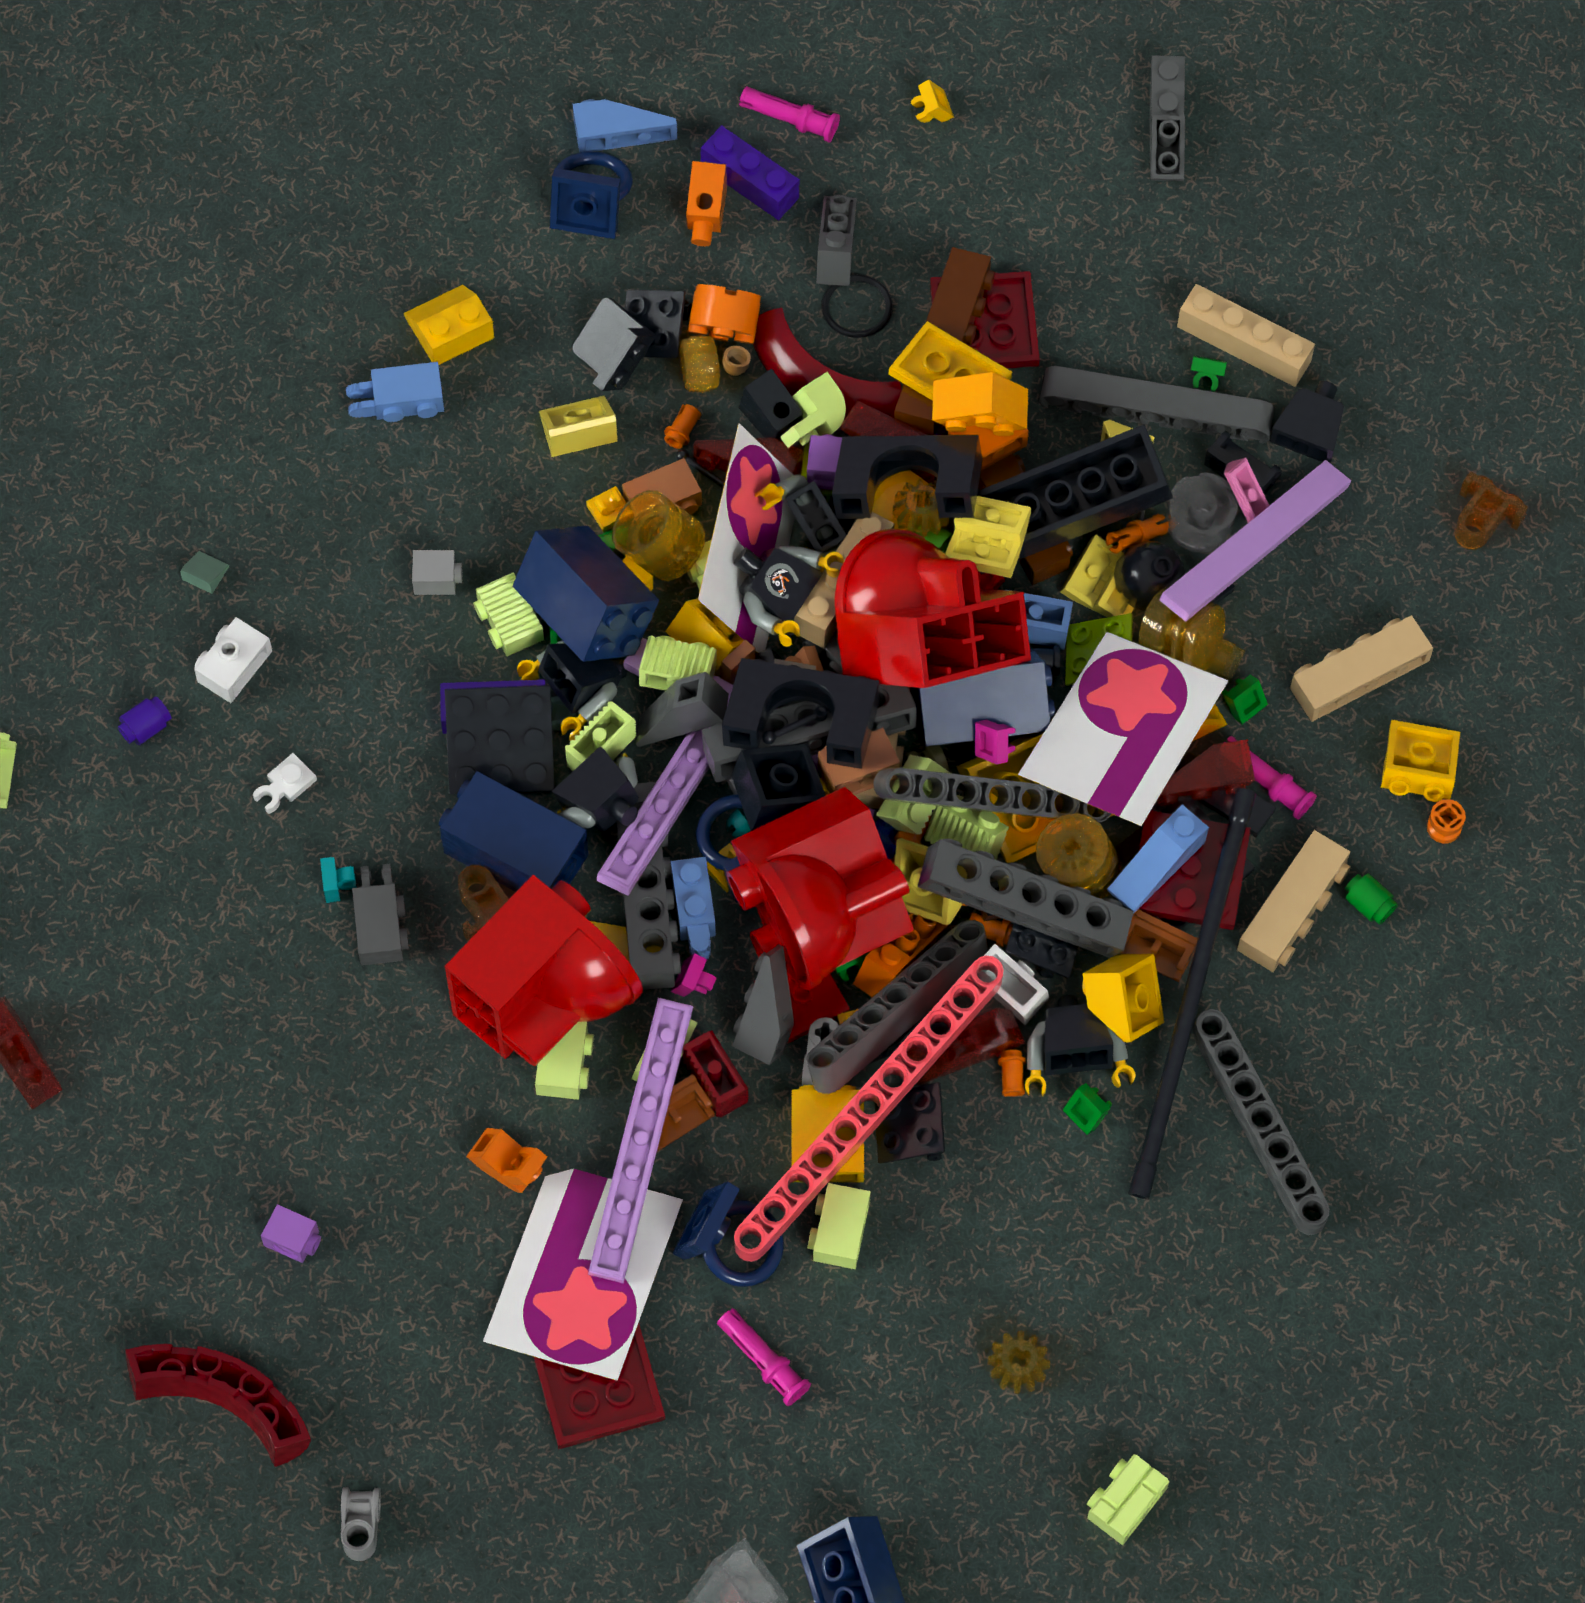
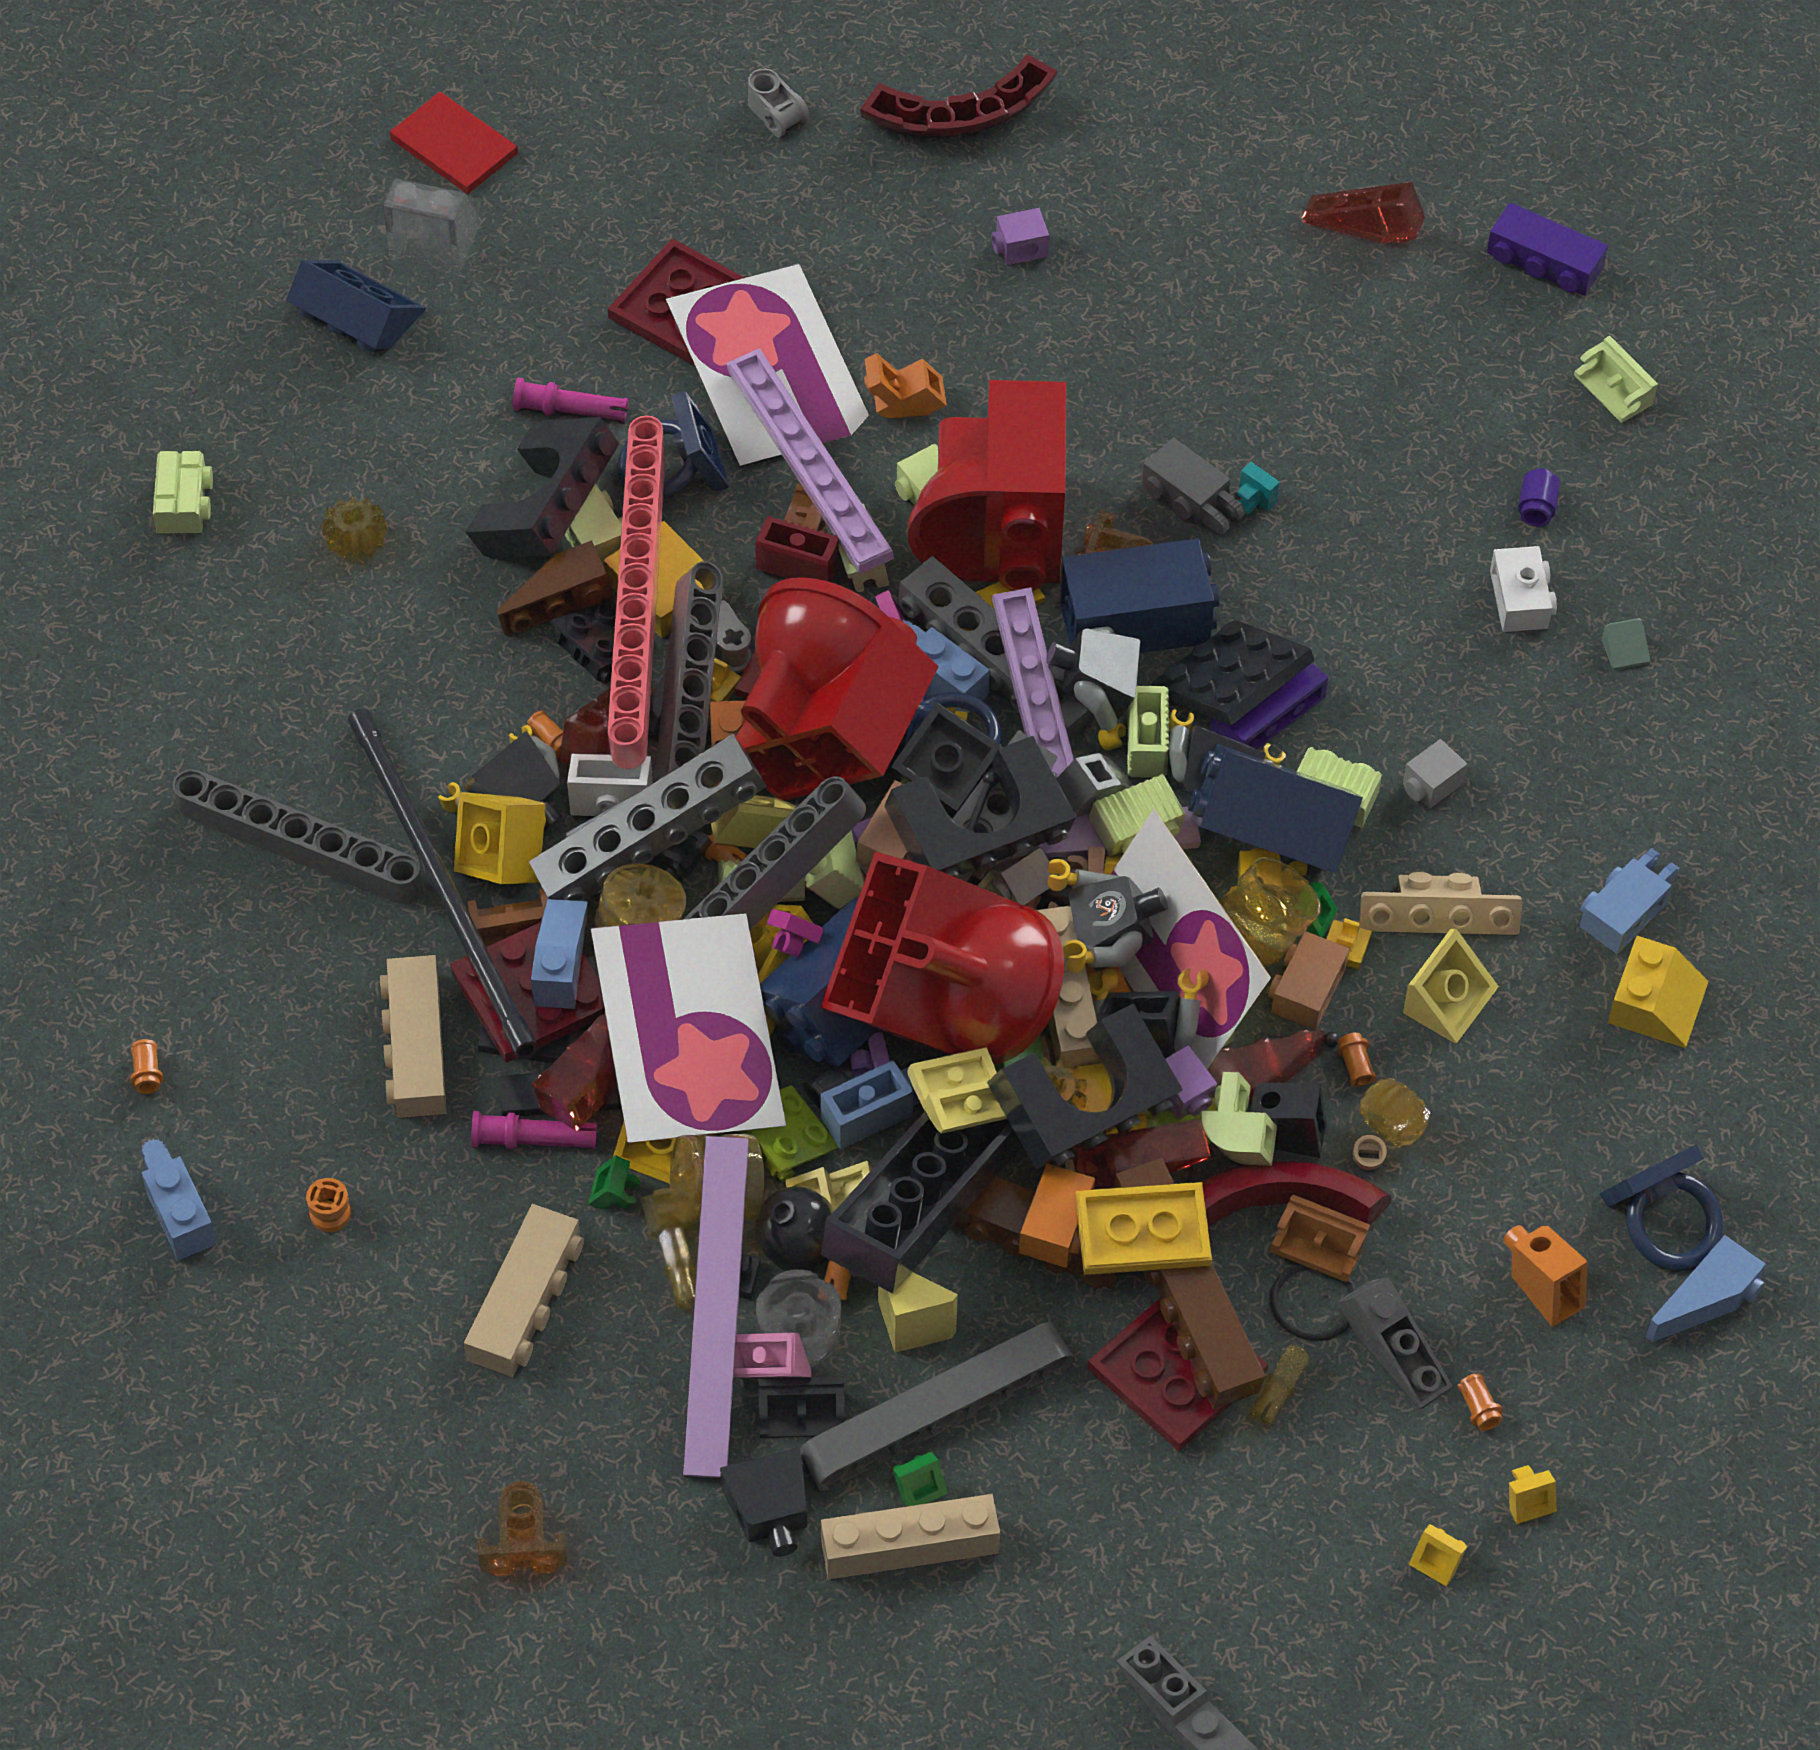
camera: 140 degrees right, 10 degrees down
(286, 780) = (1377, 541): white plate -> none
(520, 488) = (1438, 905): none -> tan bracket
(612, 344) = (1484, 1076): bracket -> none
(663, 315) = (1476, 1123): black hinge -> none
(724, 313) = (1416, 1163): orange brick -> none
(752, 173) = (1538, 1336): dark purple brick -> none
(803, 117) = (1547, 1446): dark pink pin -> none
(808, 1266) = (534, 526): none -> black arch
(822, 163) = (1484, 1411): none -> orange pin
(823, 327) = (1320, 1238): none -> dark orange hinge
(845, 95) = (1531, 1494): none -> yellow tile
(905, 1181) = (559, 588): none -> reddish brown slope
(930, 266) = (1280, 1384): none -> clear yellow axle
(980, 401) = (1071, 1181): light orange brick -> none
(1087, 1108) = (459, 747): green tile -> none
(1244, 612) = (679, 1266): none -> clear yellow axle
(1370, 898) = (346, 1089): green brick -> none
(1420, 760) = (397, 1244): yellow plate -> none
(1496, 1022) = (145, 1064): none -> orange pin
(1549, 896) = (176, 1201): none -> medium blue hinge

